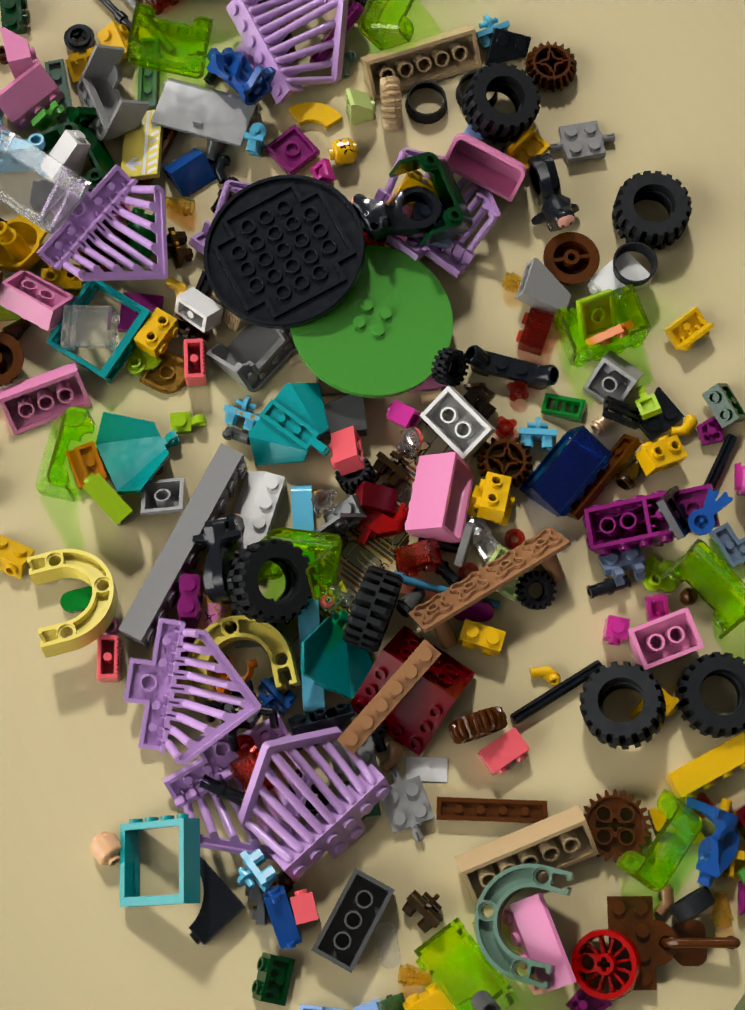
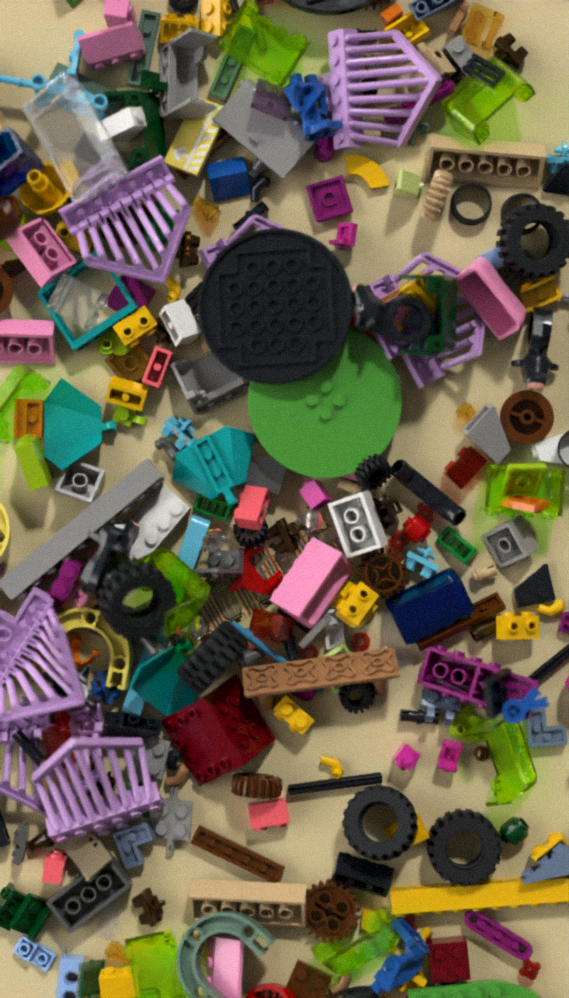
camera: 25 degrees right, 15 degrees up
(48, 118) = (120, 72): bright green plate -> none
(174, 399) = (126, 393): none -> yellow brick
(199, 83) = (271, 99): none -> clear purple slope
(256, 139) = (300, 177): medium azure hips -> none
(262, 877) = (28, 814): medium azure hips -> none
(268, 110) = (324, 150): none -> magenta tile
(282, 917) = (33, 865): blue brick -> none
(302, 976) = (31, 916): none -> dark green bracket
(304, 625) = (153, 646): none -> dark grey cone
(318, 478) = (229, 513): none -> green slope
(333, 878) = (87, 855): none -> dark tan door
(343, 151) = (374, 222): yellow head -> none
(371, 850) = (129, 841): none -> sand blue plate
(377, 497) = (260, 559): dark red slope -> none
(389, 697) = (192, 738): medium nougat plate -> none
(427, 768) = (201, 797): white sticker -> none
(517, 406) = (416, 529): none -> red head
(621, 409) = (513, 581): black tile -> none
(630, 770) = (362, 874): none -> black brick
(647, 404) = (528, 577): lime plate -> none
(664, 639) = (441, 785): bright pink slope -> none

